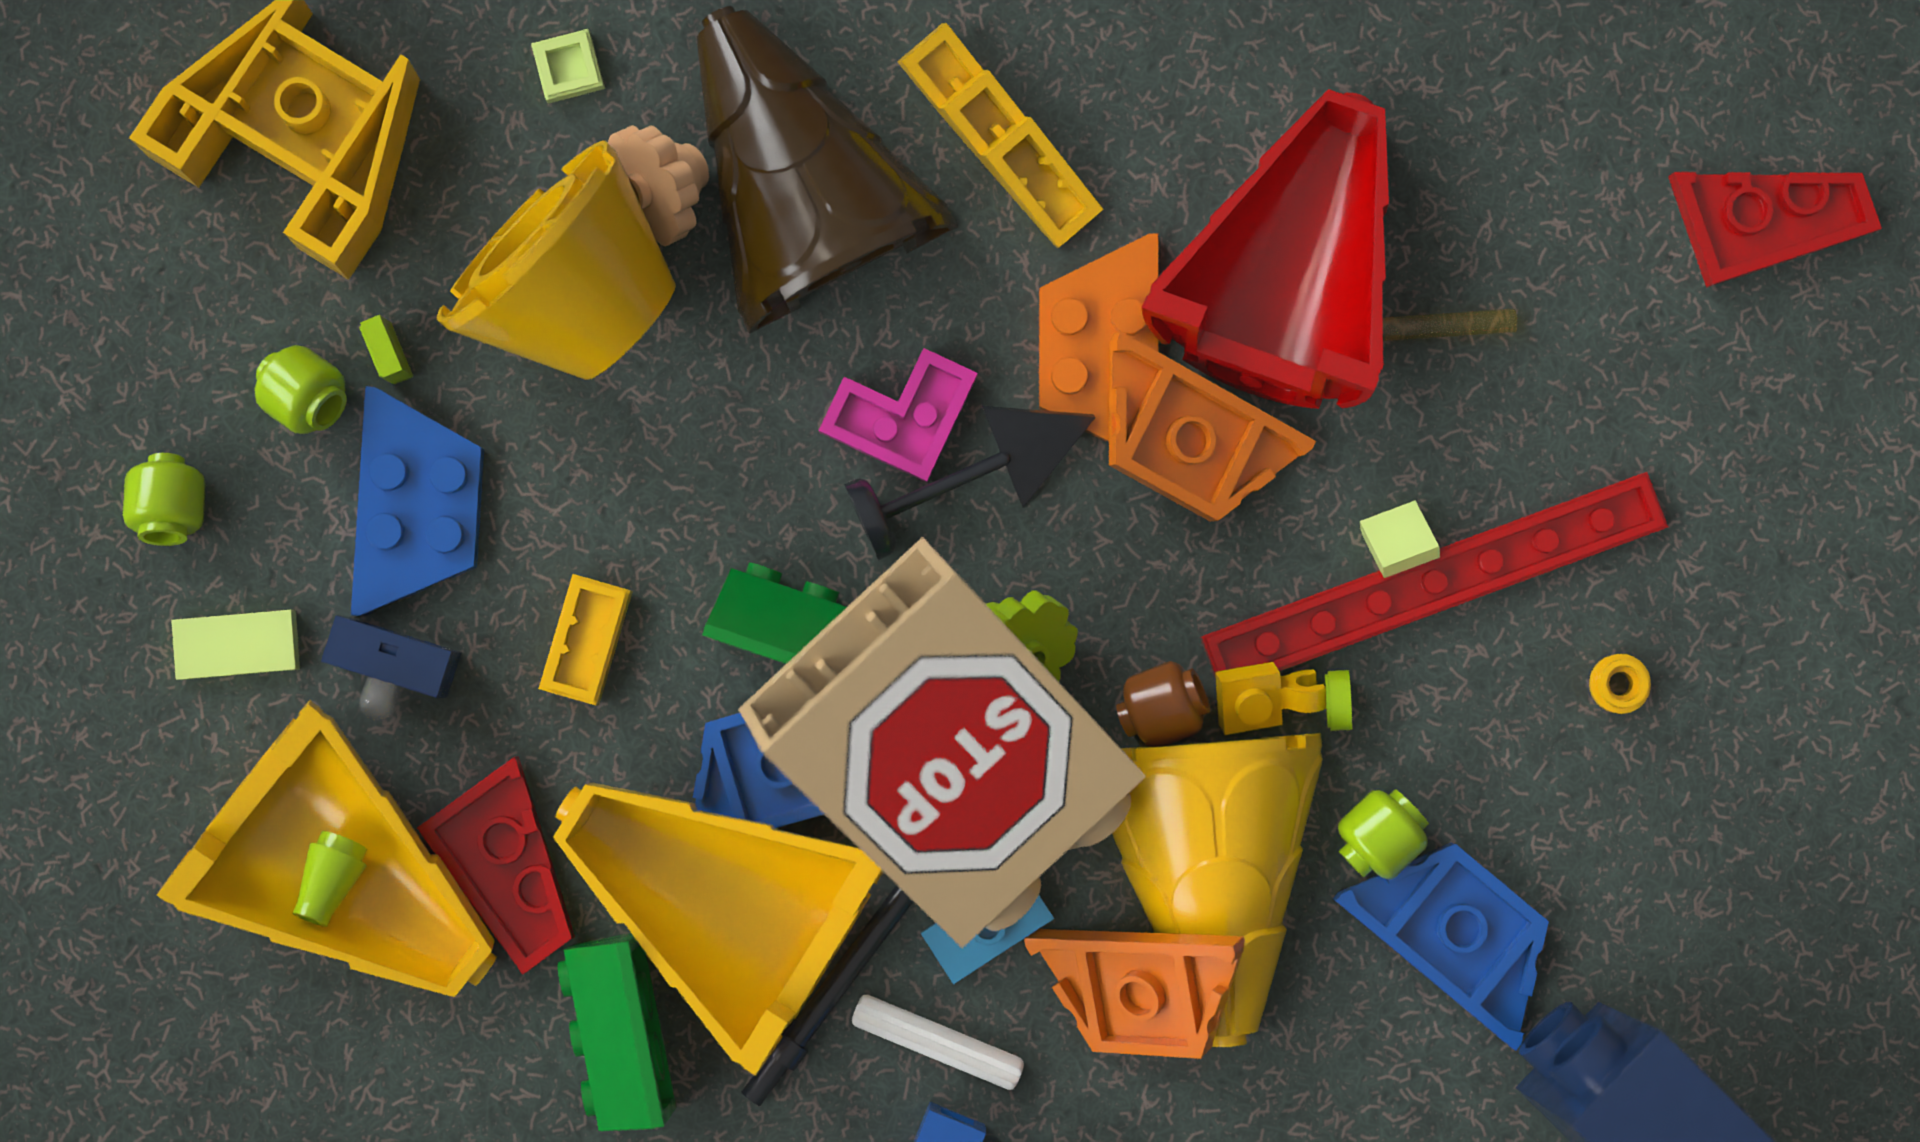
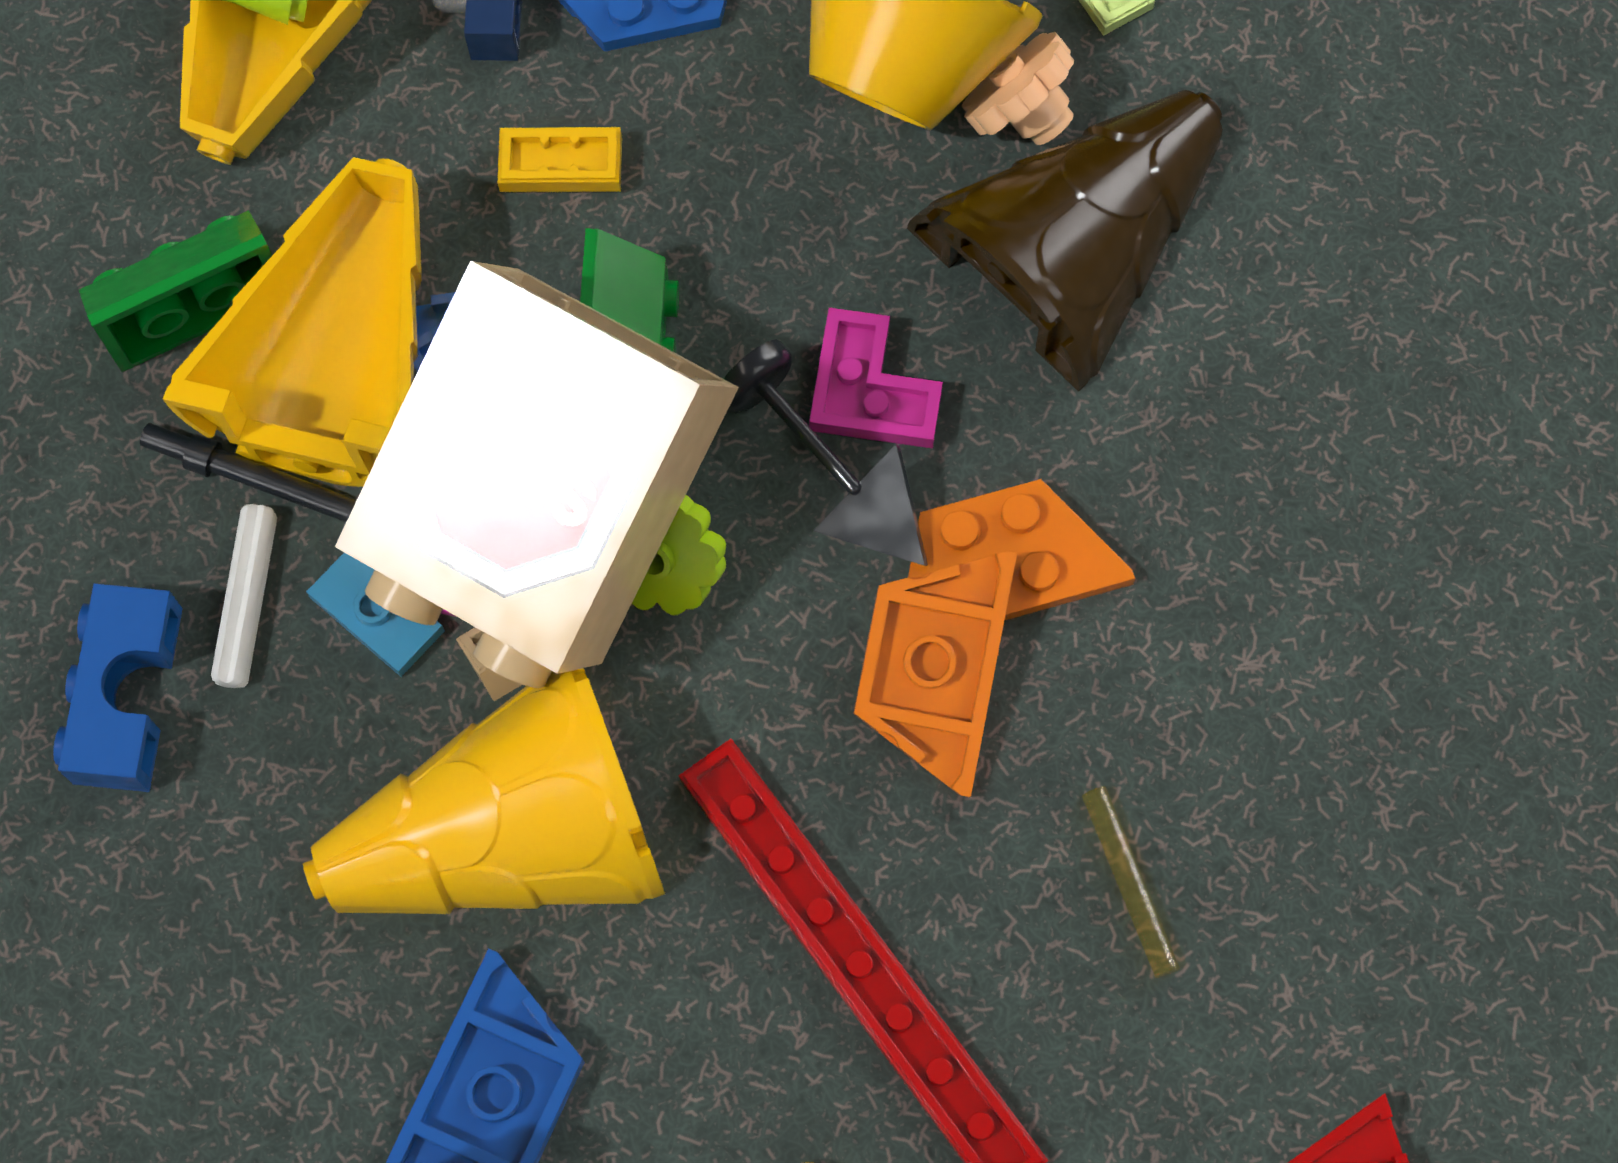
camera: 80 degrees right, 15 degrees down
(503, 864) = (315, 140): red wing -> none
(1000, 135) = (1182, 400): yellow slope -> none
(1142, 988) = (345, 767): orange wing -> none
(1163, 704) = (648, 716): dark orange head -> none
(1257, 693) = (680, 810): yellow plate -> none
(1291, 266) = (1145, 700): red cone -> none
(1338, 700) = (702, 894): lime tile -> none
(1382, 834) = (571, 977): lime head -> none
(1399, 539) = (893, 912): yellowish green tile -> none

